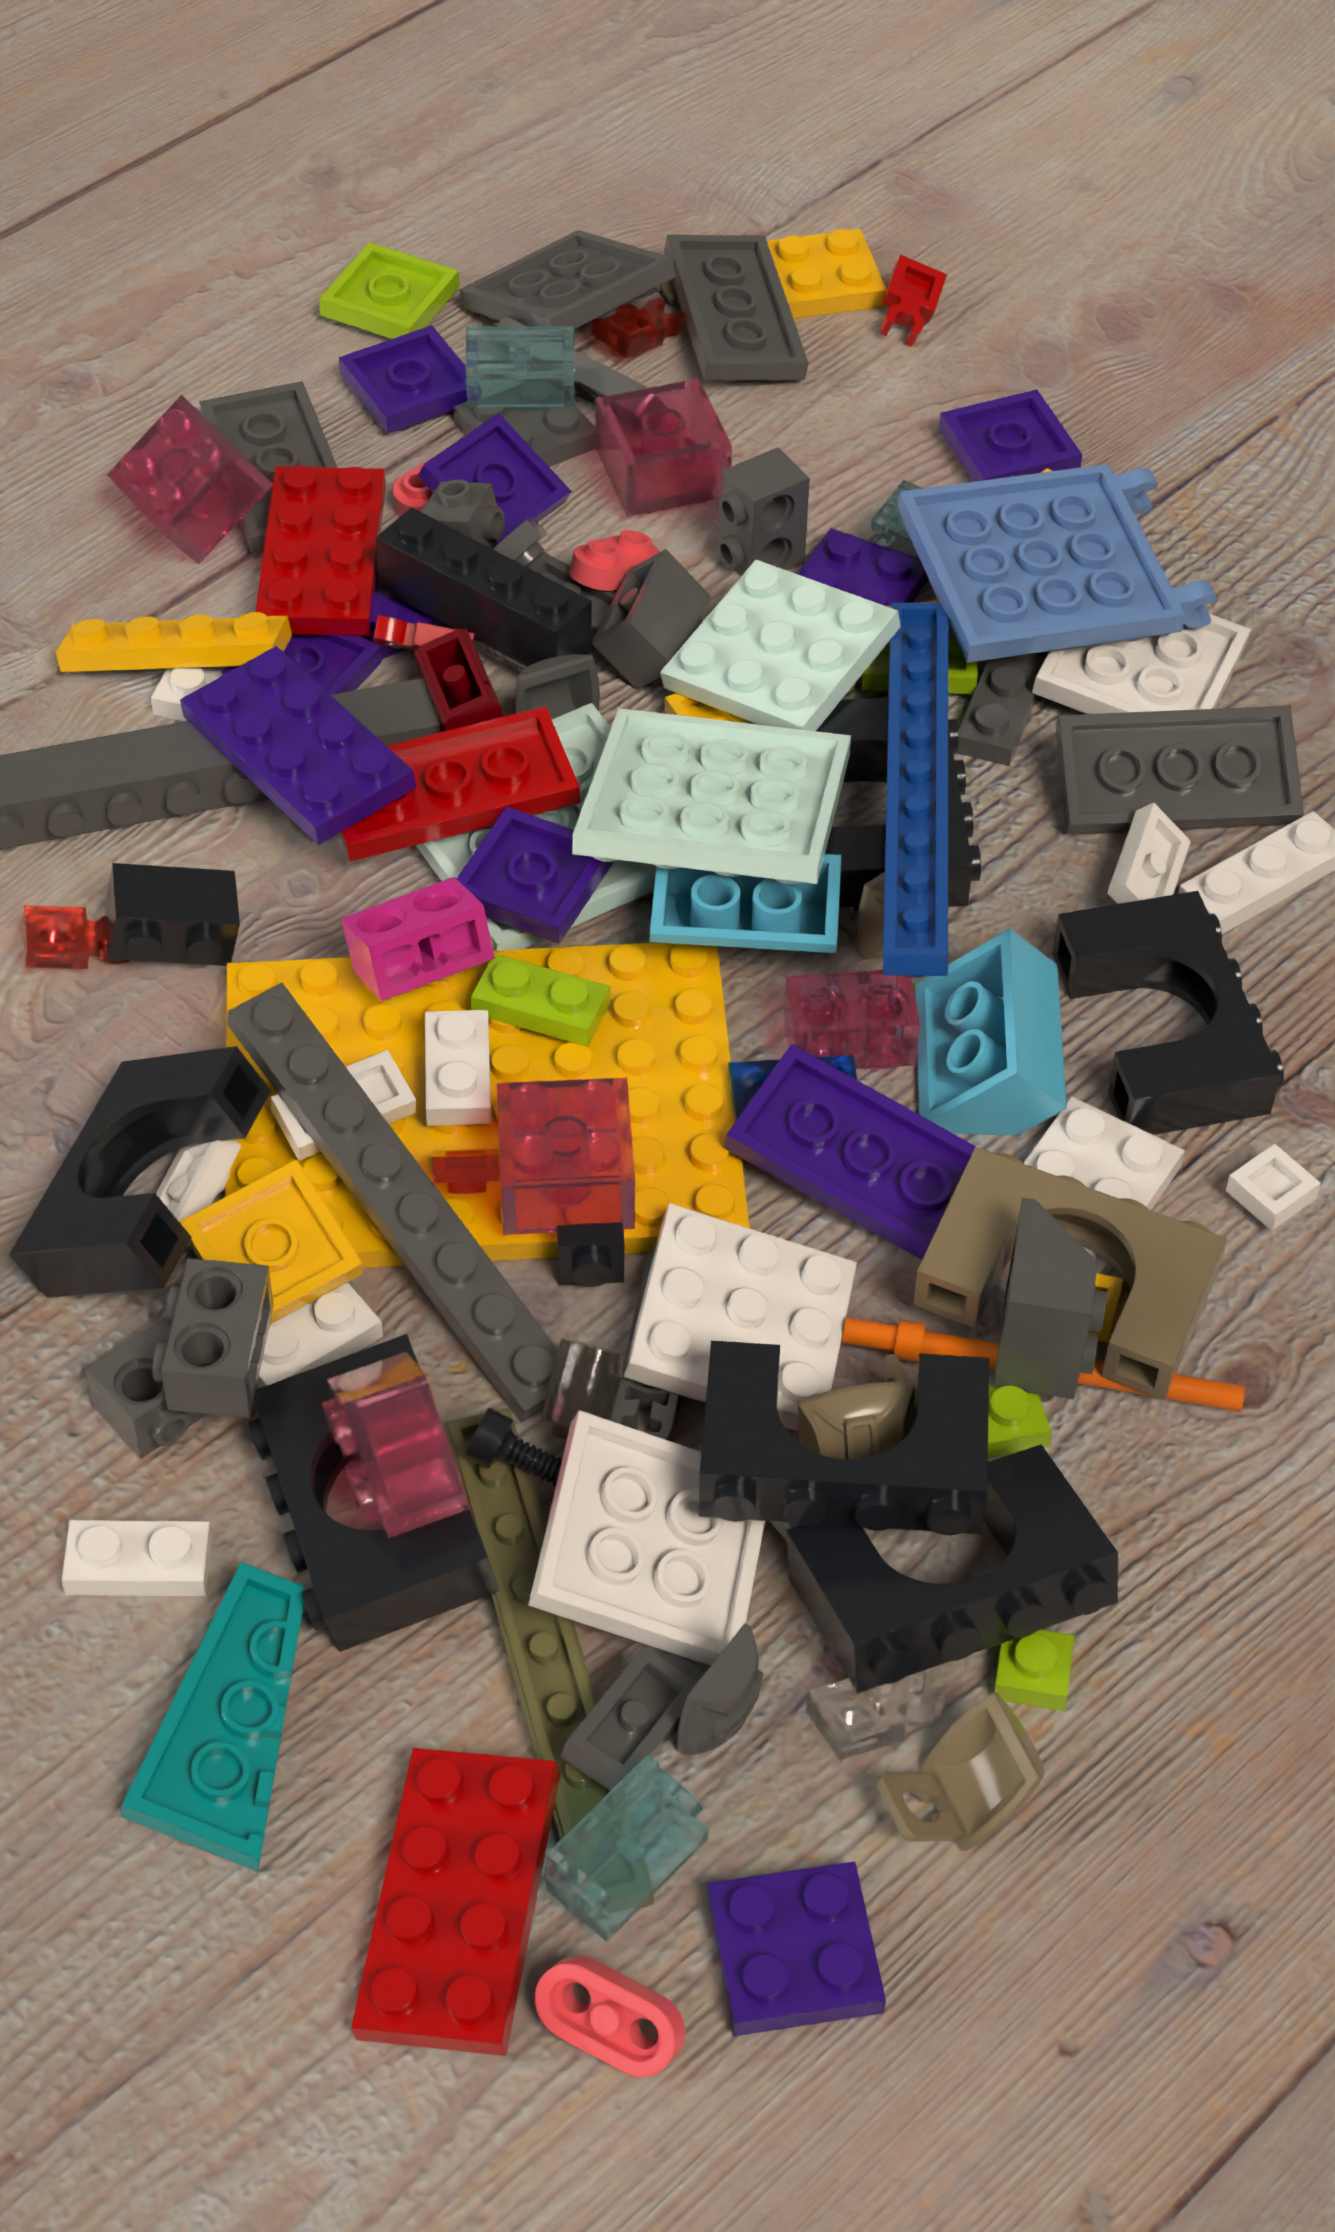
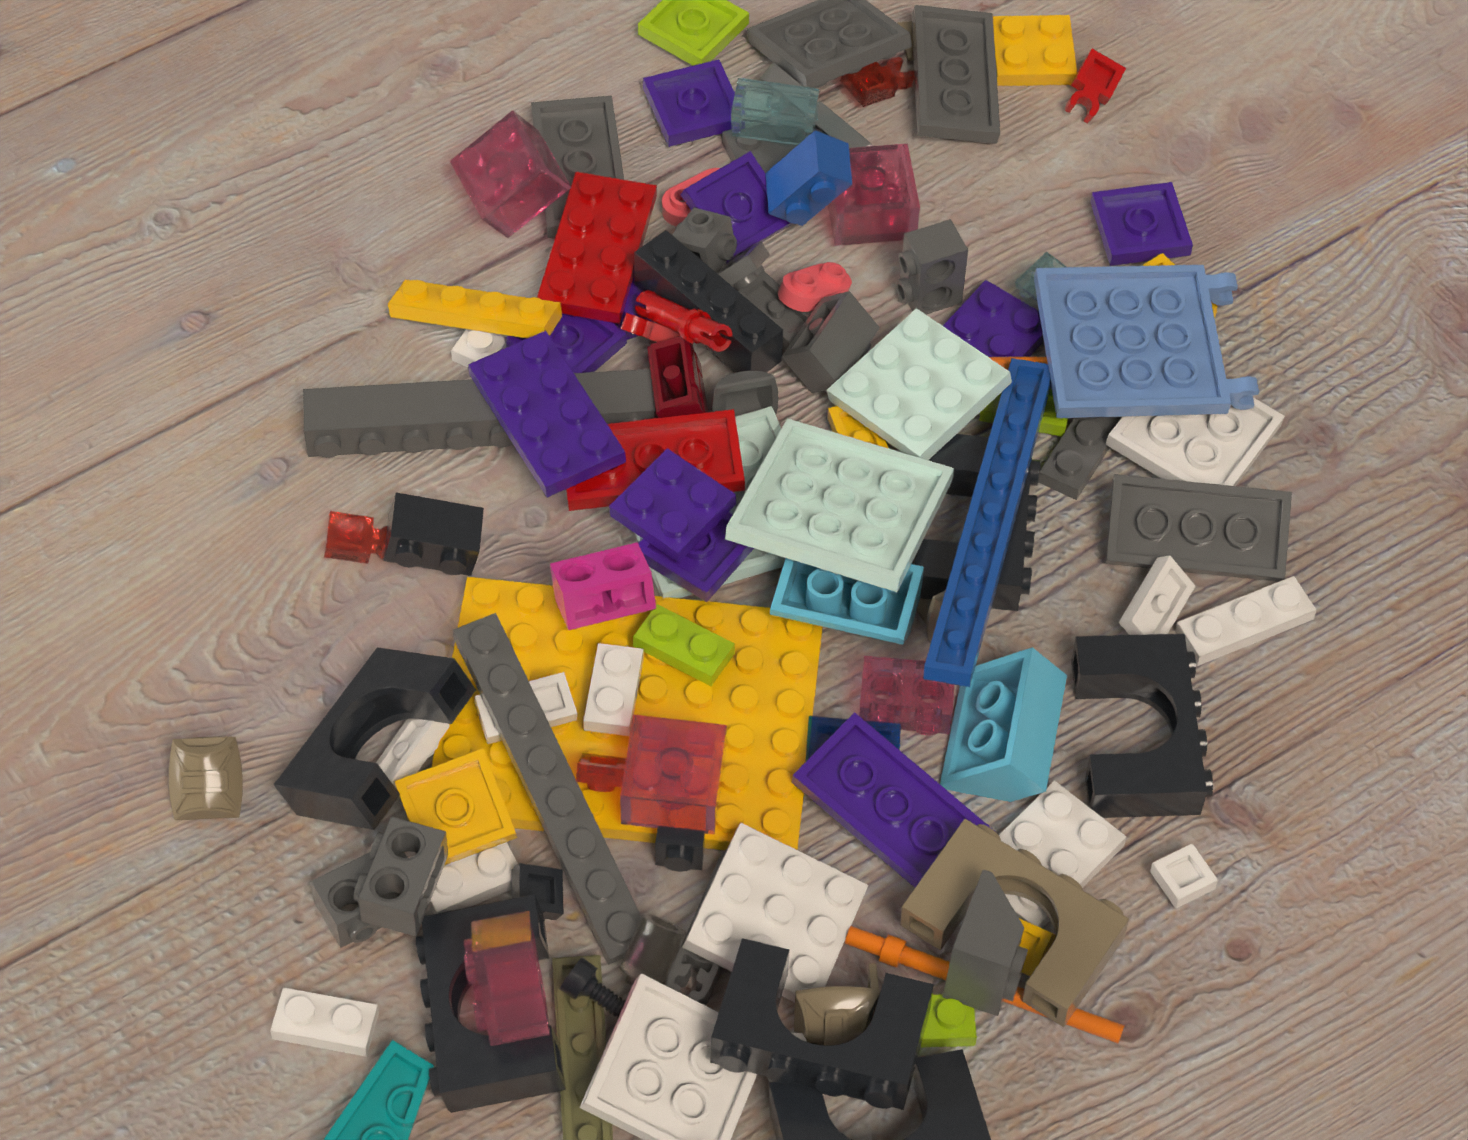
camera: 10 degrees right, 5 degrees up
(418, 1321) = (544, 883): none -> black plate
(472, 611) = (692, 324): none -> red pin
(491, 828) = (672, 505): none -> dark purple plate
(582, 430) = (808, 178): none -> blue brick

